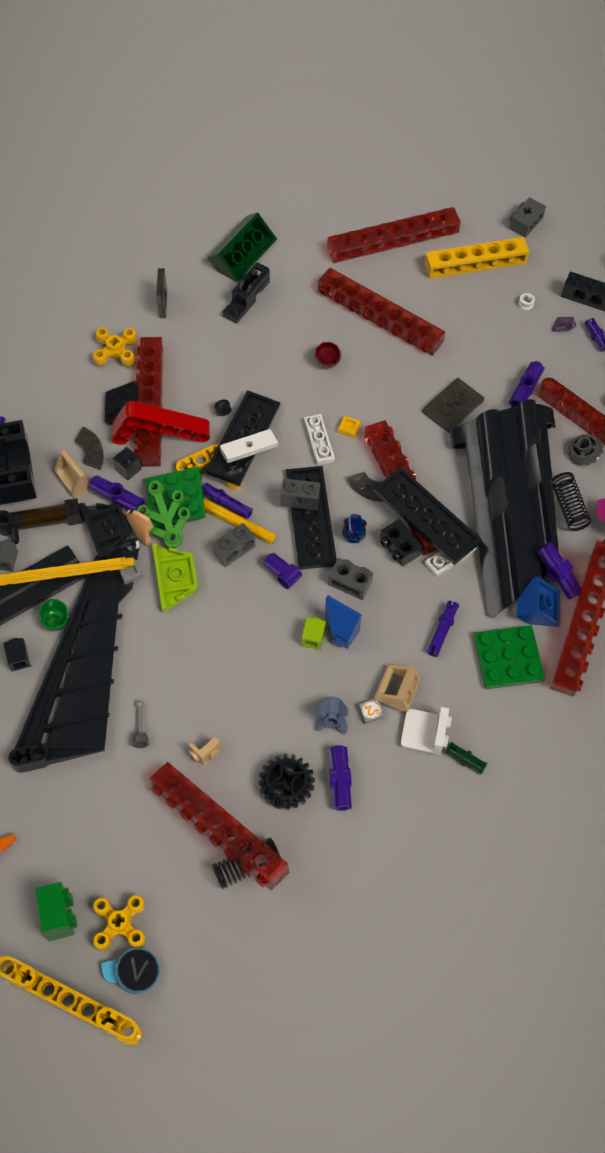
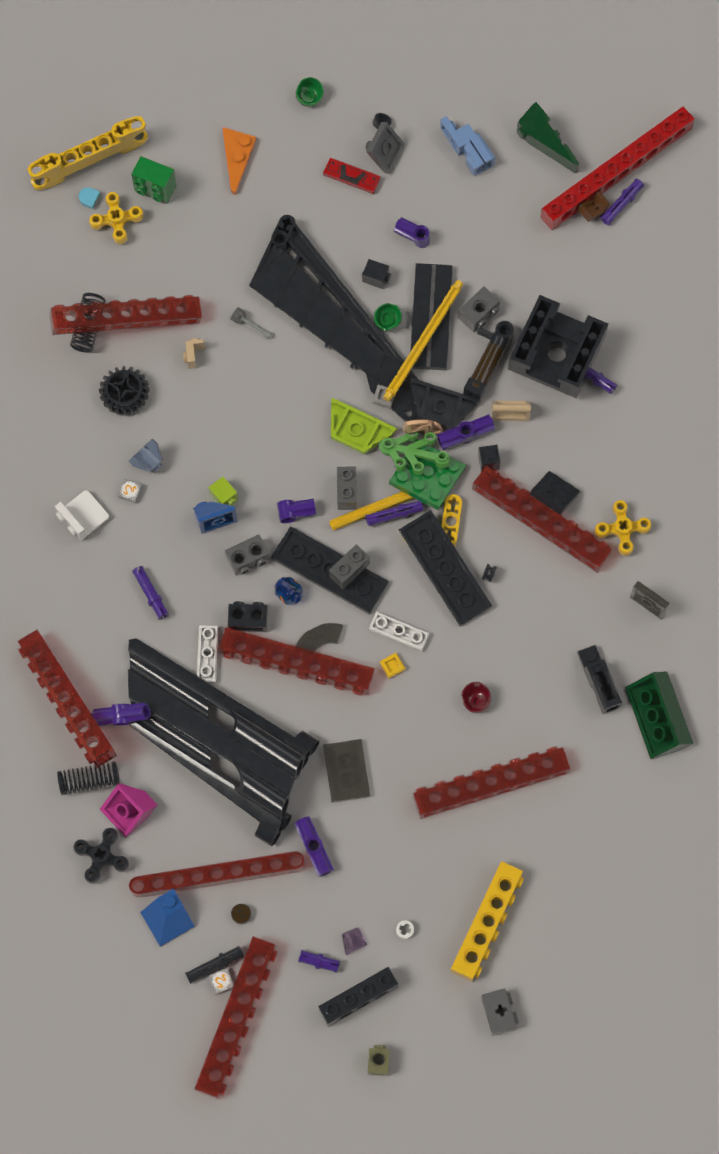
camera: 130 degrees right, 10 degrees up
(92, 448) = (530, 445): clear smoke tile -> none
(137, 970) = (75, 209): black tile -> none
(159, 420) = (518, 478): red beam -> none
(248, 446) = (427, 546): white tile -> none
(340, 778) = (96, 429): dark purple piece -> none
(393, 234) = (545, 930): clear red brick -> none
(407, 689) = (122, 524): tan tile -> none
(427, 516) = (250, 649): black tile -> none
(466, 758) = (39, 528): dark green pin -> none
(509, 657) = (89, 625): green plate -> none
(539, 604) = (107, 680): blue slope -> none
(573, 519) = (199, 790): black piece -> none
(585, 449) = (213, 842): dark grey piece -> none

